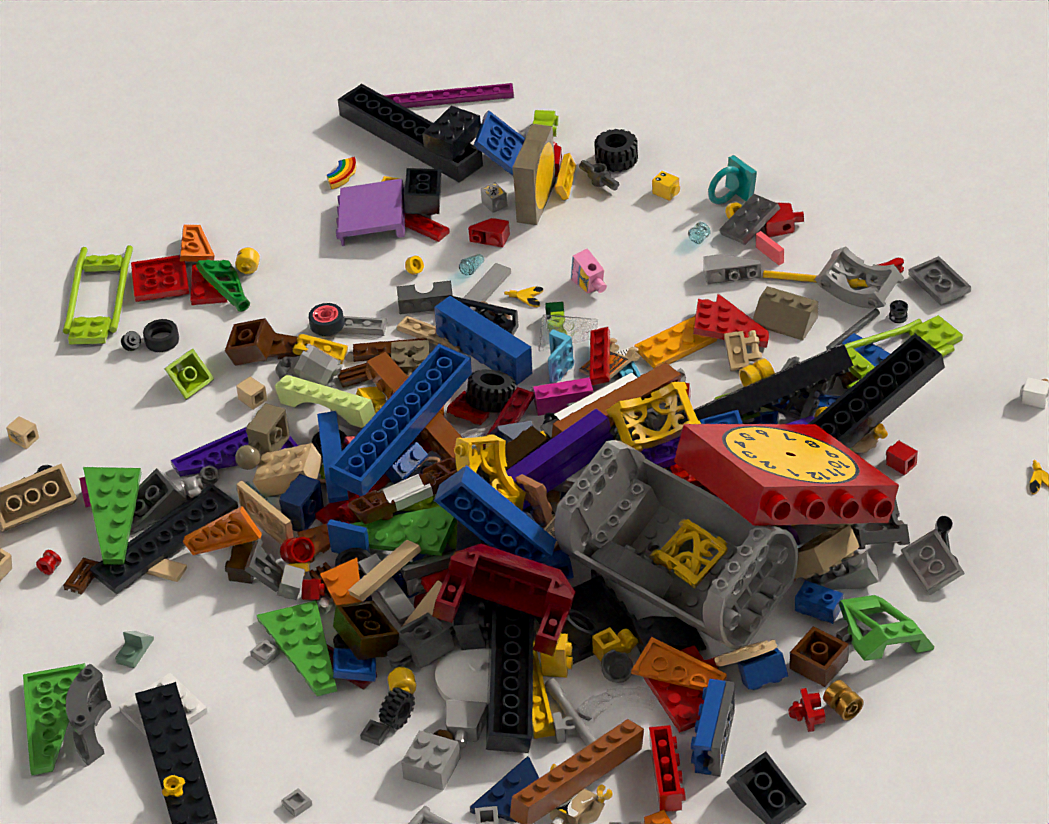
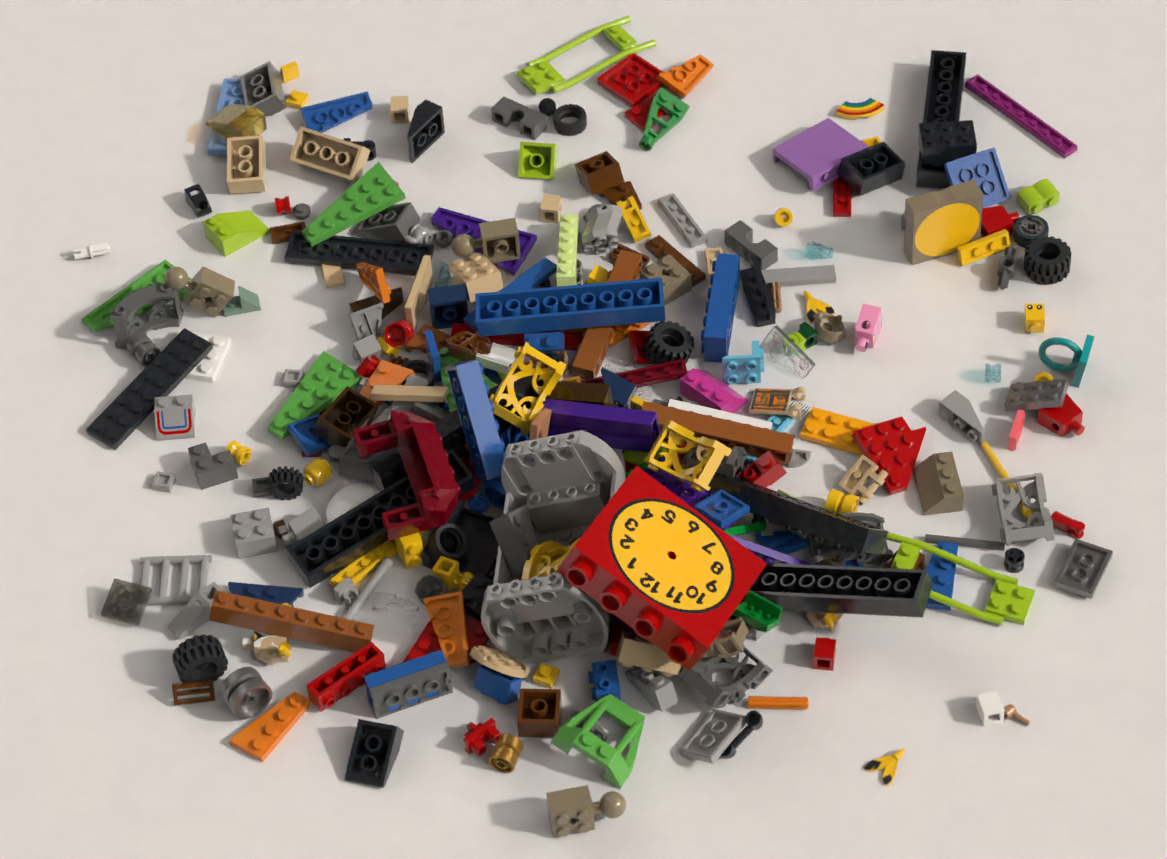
camera: 55 degrees right, 5 degrees up
(39, 612) = (234, 230): none -> lime slope
(68, 554) = (301, 211): none -> dark grey plate
(69, 423) = (425, 128): none -> black slope
(109, 652) = (205, 291): none -> dark tan brick
(121, 740) = (142, 348): none -> dark grey wheel
(134, 357) = (531, 121): none -> dark grey arch
(172, 781) = (115, 402): yellow plate -> none
(229, 755) = (174, 417): none -> light grey slope
(247, 260) = (695, 116): yellow head -> none
(317, 759) = (212, 469): none -> dark grey brick
(320, 729) = (240, 453): none -> yellow wheel
(326, 319) = (667, 201): black wheel -> none
(490, 232) = (867, 241): red slope -> none
(562, 293) = (829, 327): none -> dark tan hair
(576, 144) = (1029, 228): none -> wheel
(599, 356) = (774, 391): red tile -> none
(773, 633) = (546, 675): none -> yellow plate
(925, 509) = (778, 702): none -> orange axle
(949, 678) = (573, 811): none -> dark tan brick

